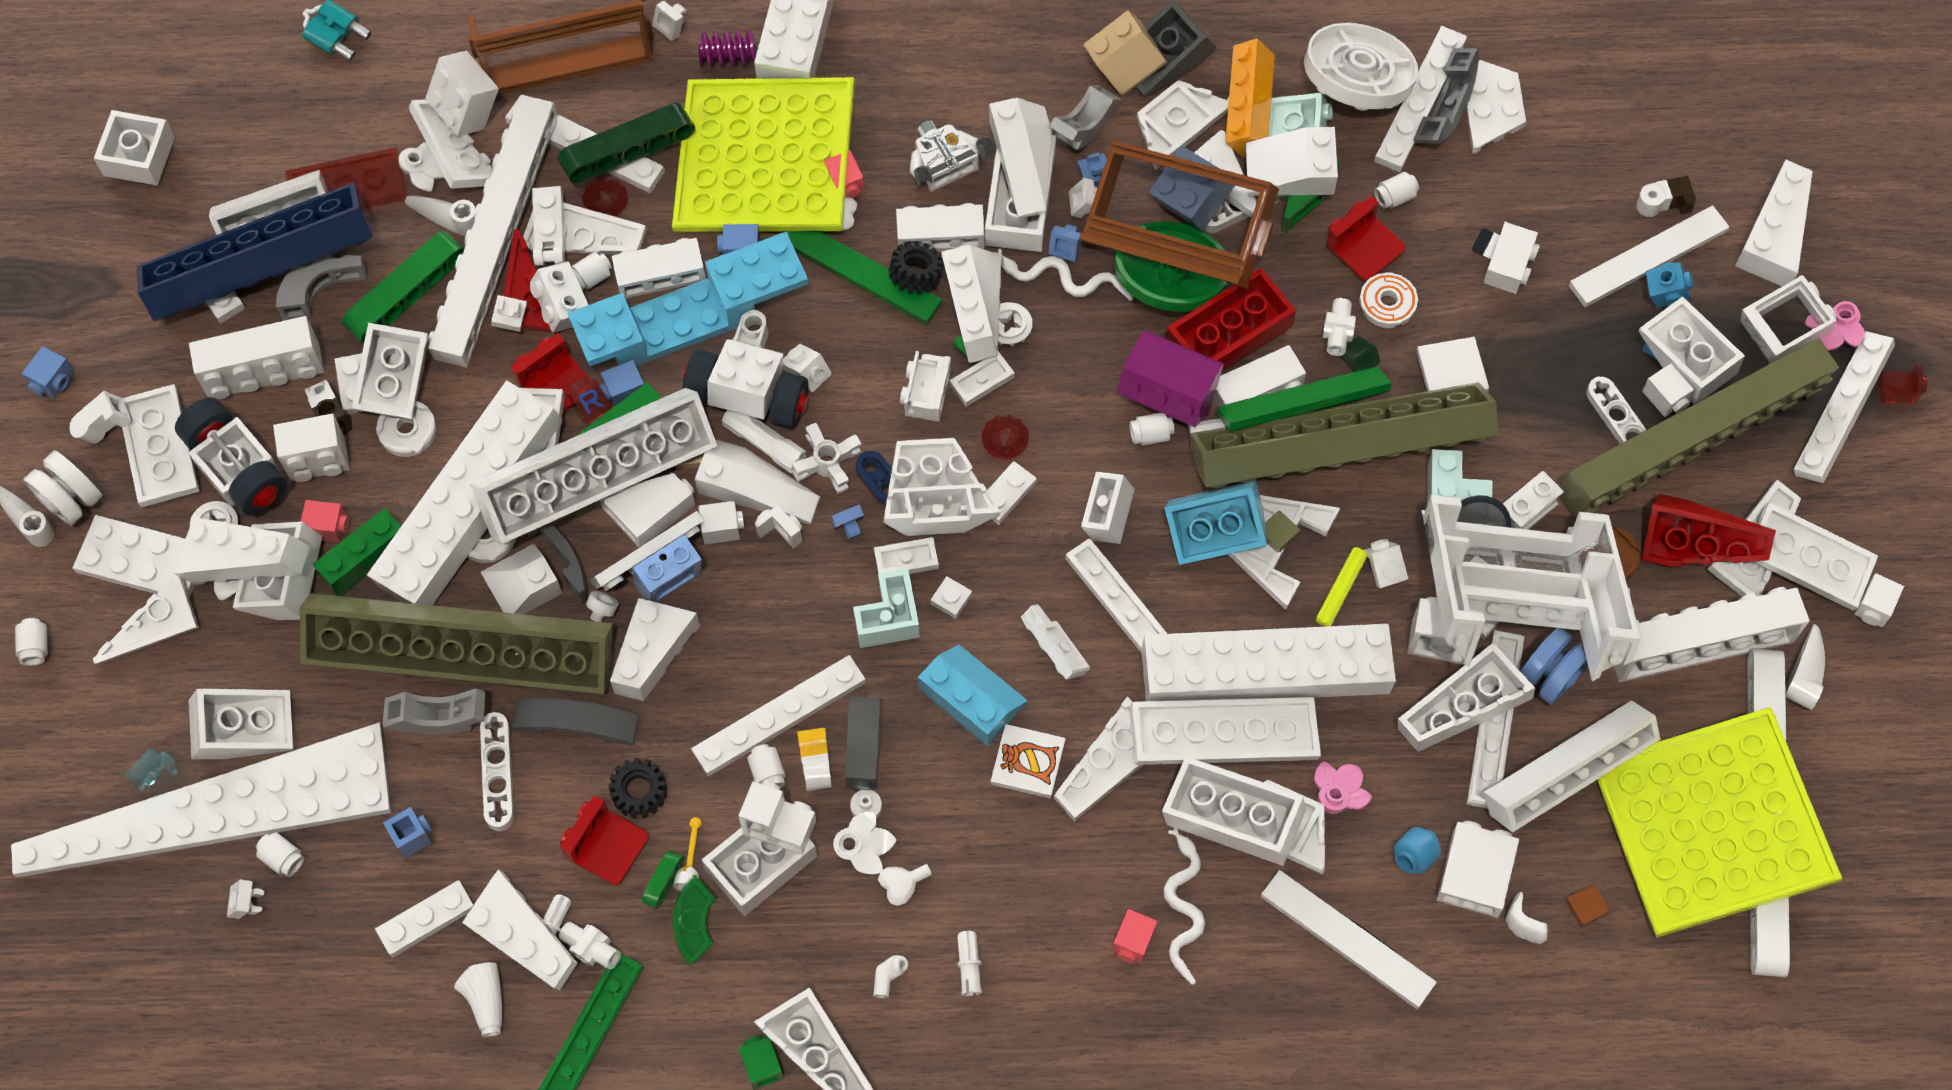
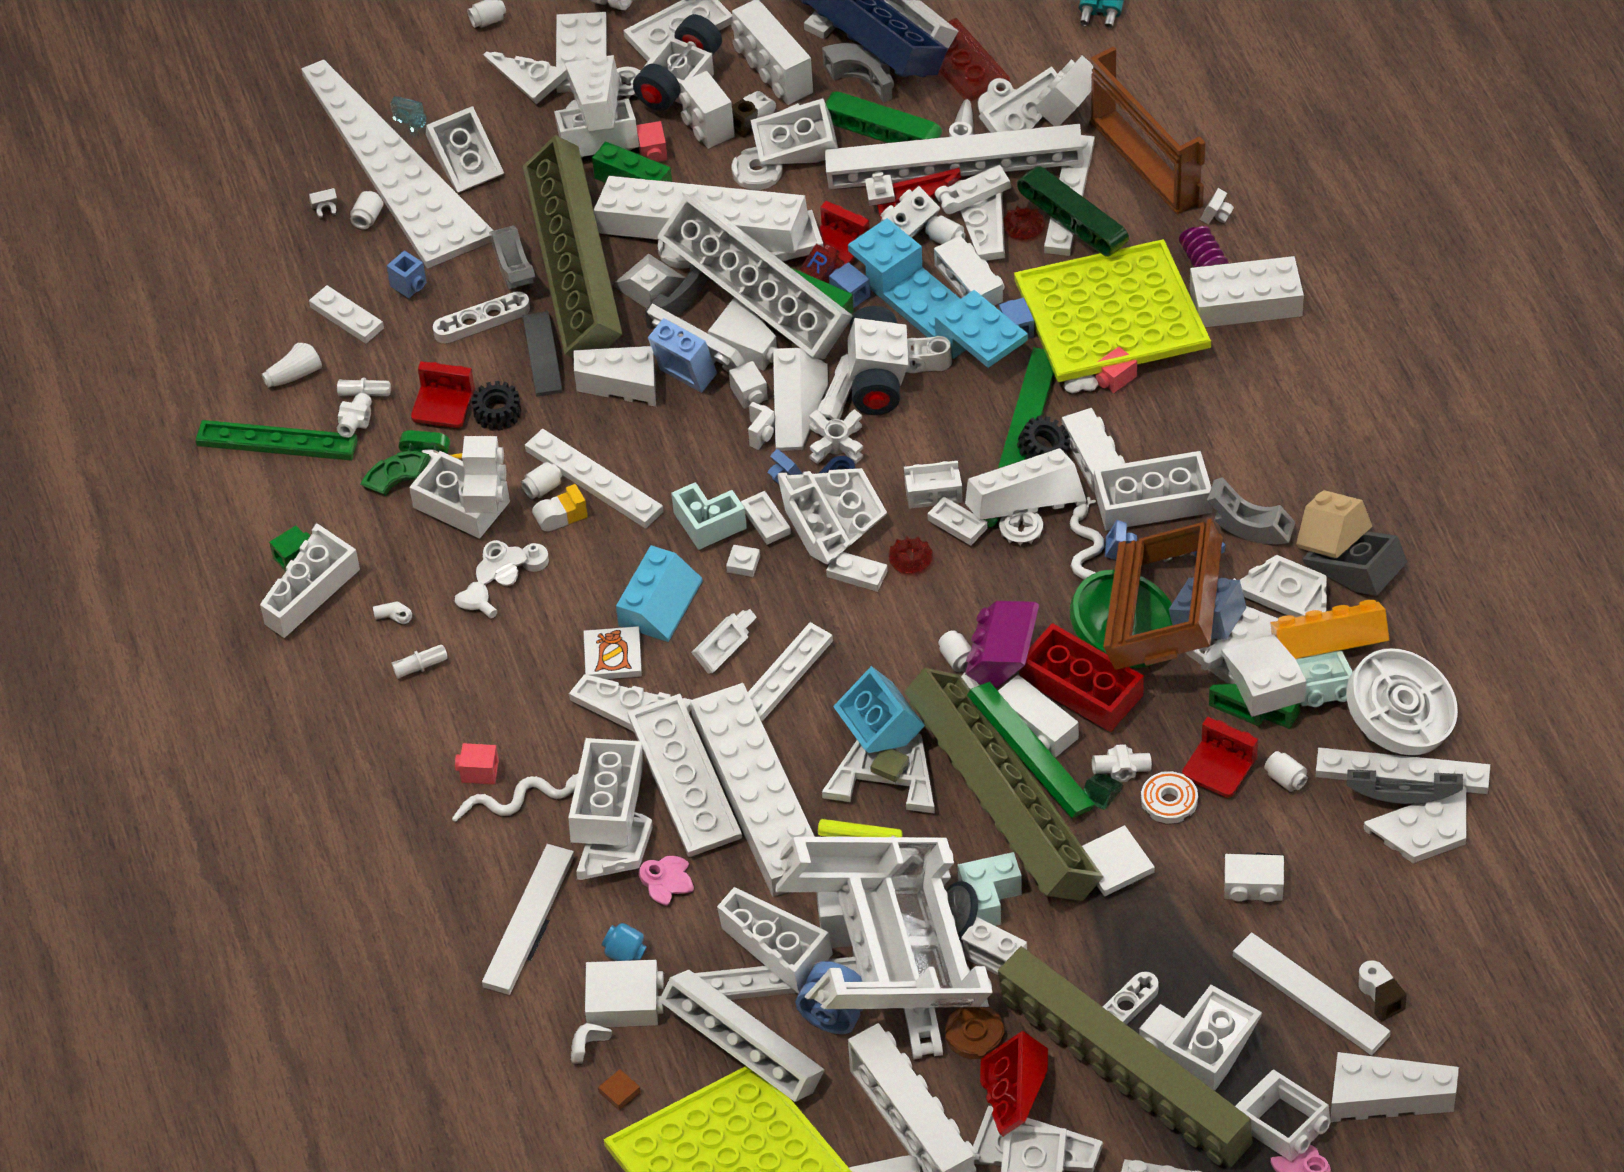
camera: 75 degrees right, 15 degrees down
(519, 932) = (349, 365): white wing -> none
(601, 605) = (642, 331): white tile -> none
(807, 363) = (917, 399): white bracket -> none
(863, 743) = (583, 532): dark grey slope -> none
(946, 154) = (1163, 428): torso -> none
(1024, 150) = (1182, 465): white wedge -> none
(1107, 507) = (863, 636): white brick -> none
(1669, 284) = (1278, 1007): dark azure brick -> none

